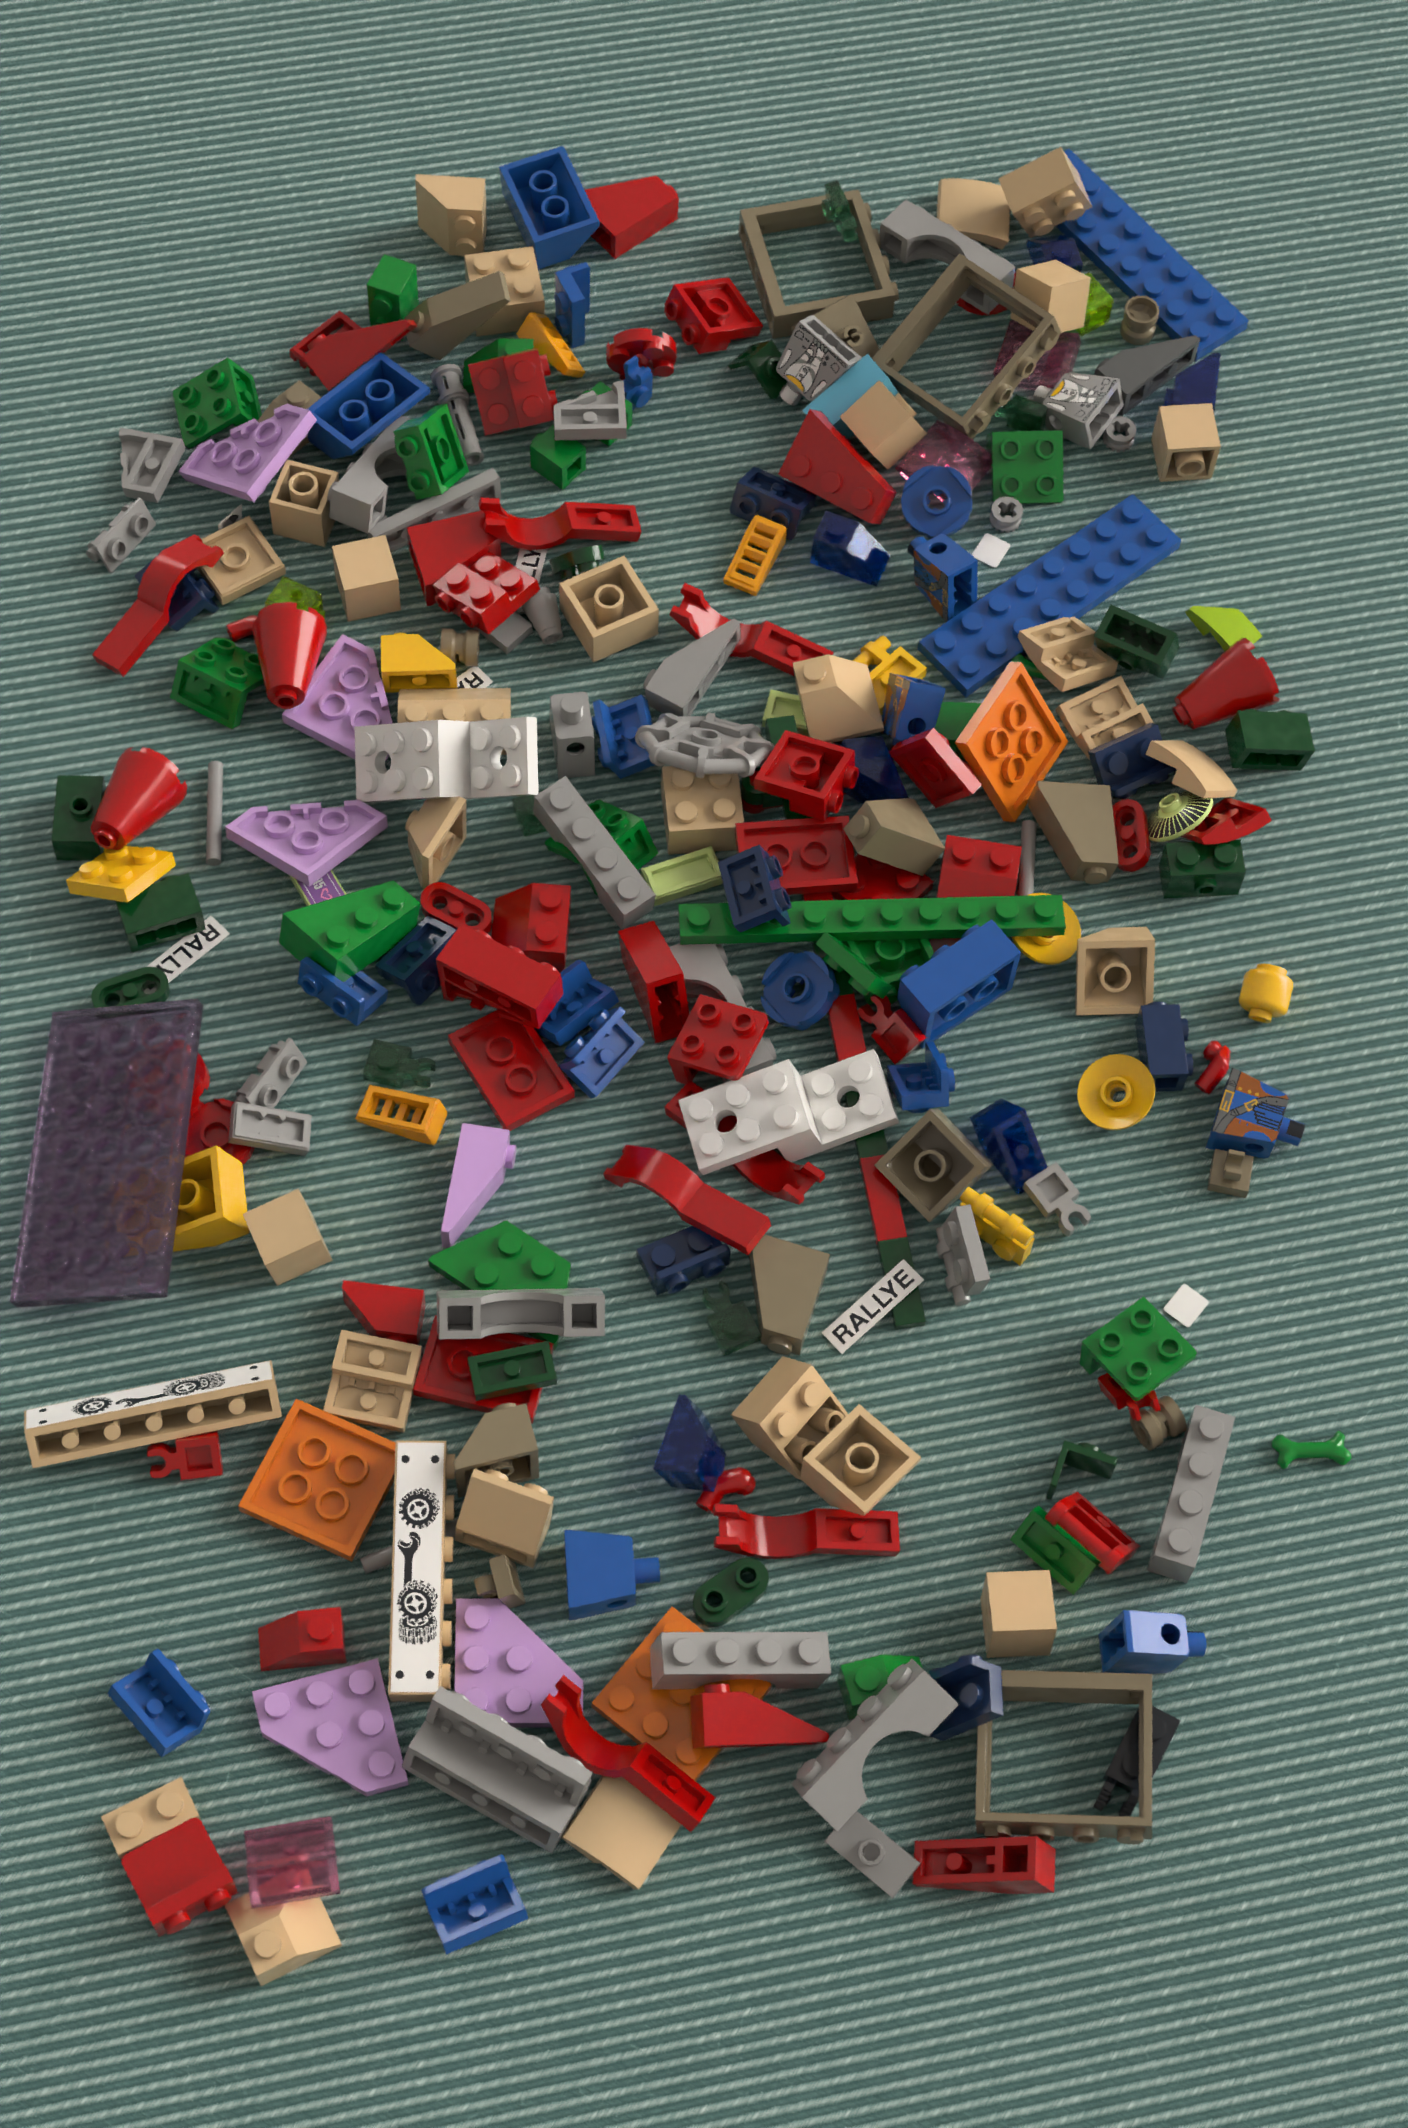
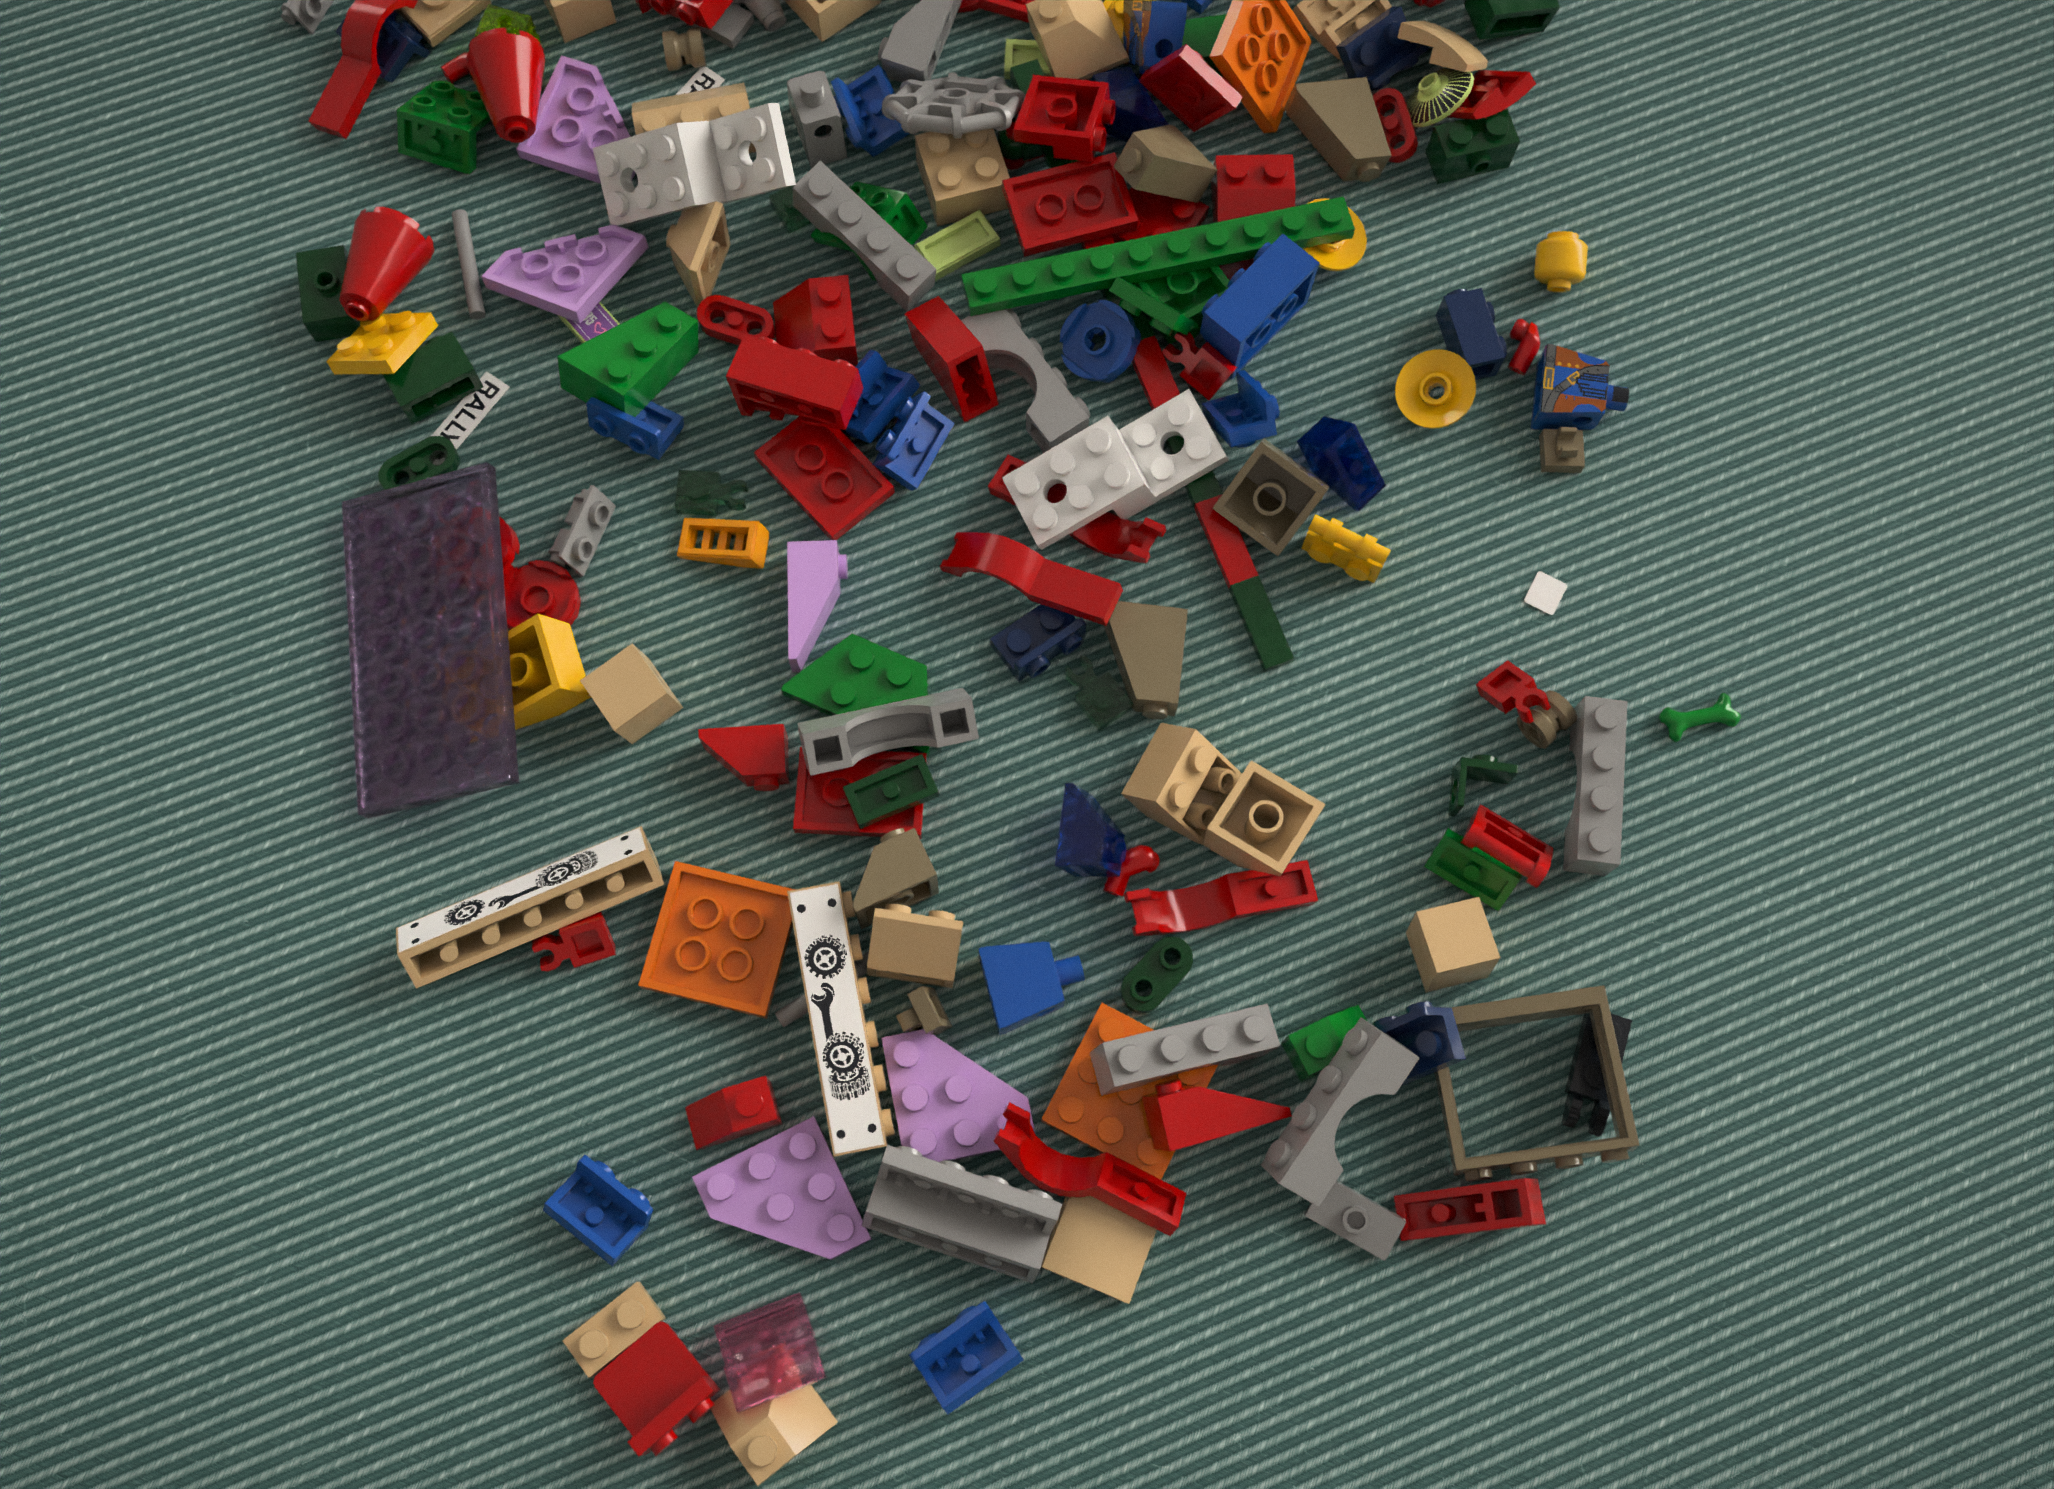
camera: 10 degrees left, 10 degrees up
(270, 1128) = (591, 583): light grey plate -> none
(373, 1380) = (750, 827): tan slope -> none
(414, 664) = (641, 74): yellow slope -> none
(414, 959) = (703, 380): dark blue bracket -> none
(716, 1040) = (1028, 408): red bracket -> none
(754, 888) = (1036, 244): dark blue bracket -> none
(872, 1306) = (1238, 653): white sticker -> none
(962, 1255) = (1320, 585): light grey plate -> none
(1027, 858) = (1293, 146): light grey bar -> none
(1055, 1193) = (1395, 503): light grey plate -> none
(1115, 971) = (1410, 266): tan slope -> none
(1137, 1349) = (1515, 650): green bracket -> none
(1148, 1643) = (1586, 949): blue torso -> none

